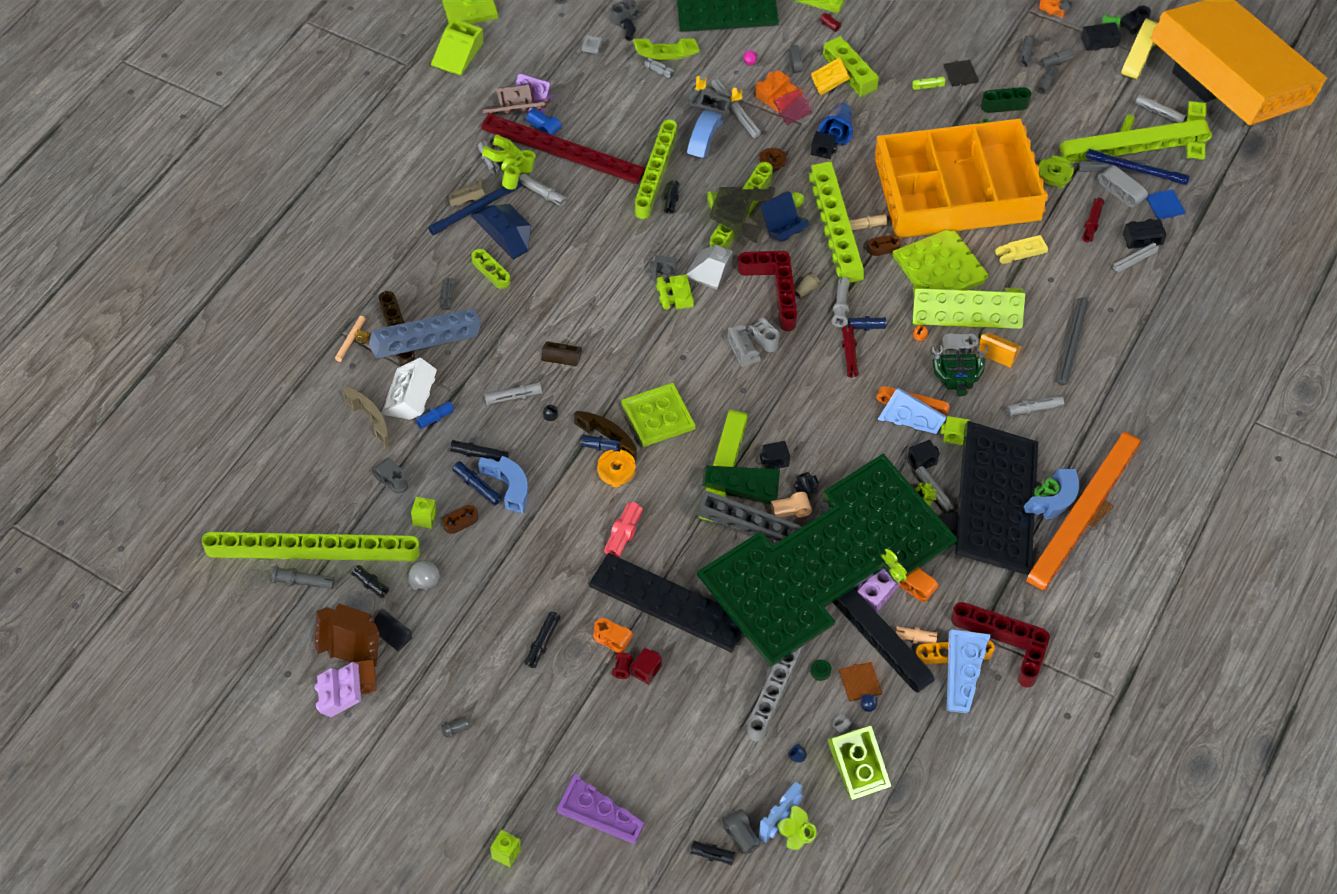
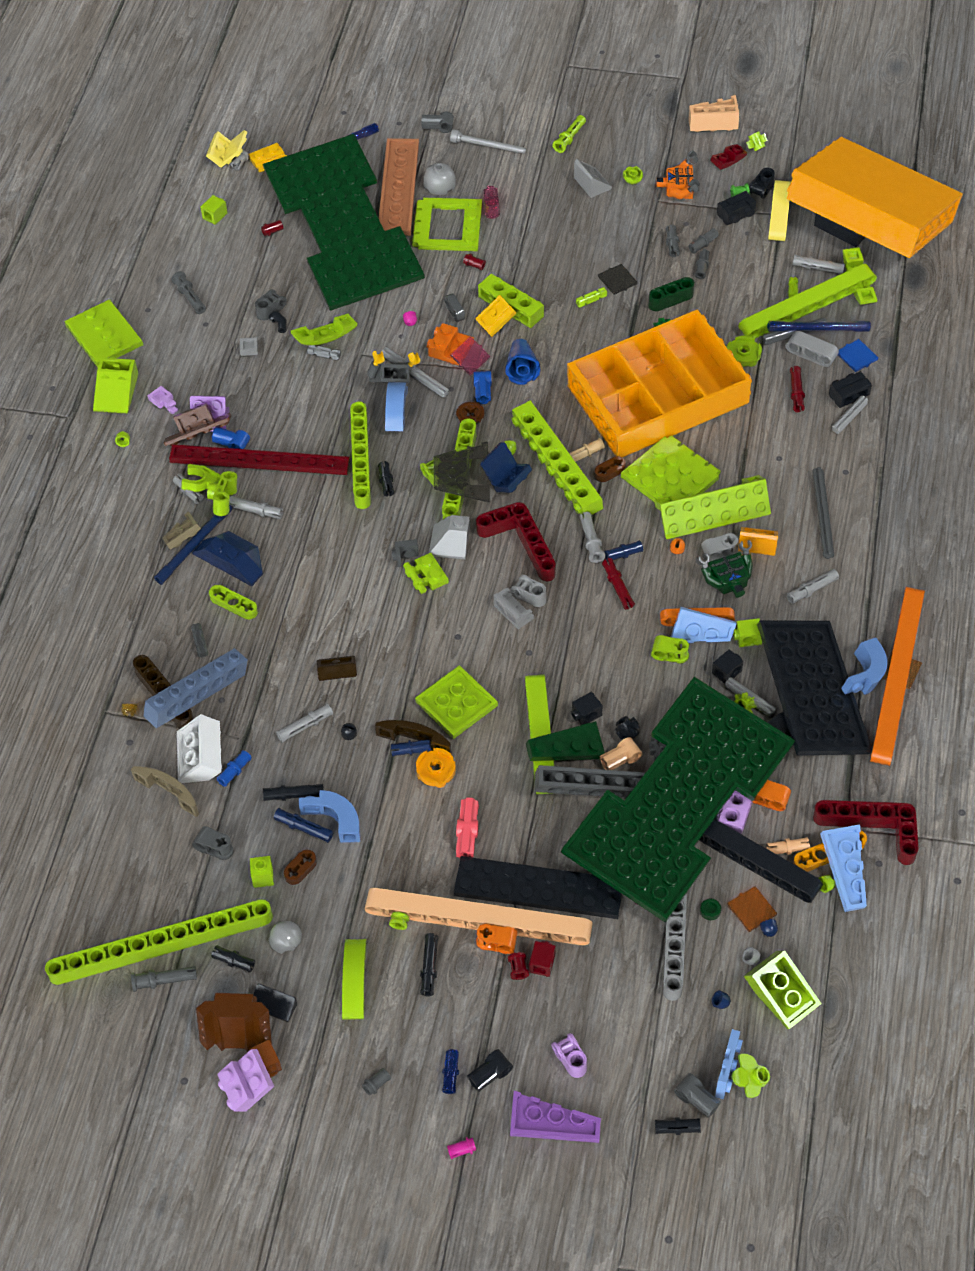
camera: 15 degrees left, 0 degrees up
(350, 338) = (117, 715): light nougat bar -> none
(444, 100) = (122, 443): none -> lime hinge
(469, 631) = (353, 979): none -> lime slope
(496, 70) = (162, 397): none -> lavender plate
(505, 848) = (474, 1189): lime brick -> none
(508, 809) = (461, 1148): none -> dark pink pin
(525, 739) = (450, 1071): none -> clear blue axle
(530, 592) = (399, 920): none -> lime bush
(566, 748) = (494, 1067): none -> black piece
(596, 606) = (473, 914): none -> light nougat beam
(638, 757) = (569, 1052): none -> lavender piece
(794, 134) = (482, 384): none -> blue piece
(807, 285) = (552, 529): dark tan cone -> none
(823, 145) = (515, 386): black brick -> none
(873, 423) = (668, 648): none -> lime piece
(897, 570) = (752, 788): lime plate -> none
(940, 679) = (828, 883): none -> lime hinge
(1021, 249) = (742, 436): light yellow hinge -> none
(1045, 488) = (856, 666): bright green bush -> none

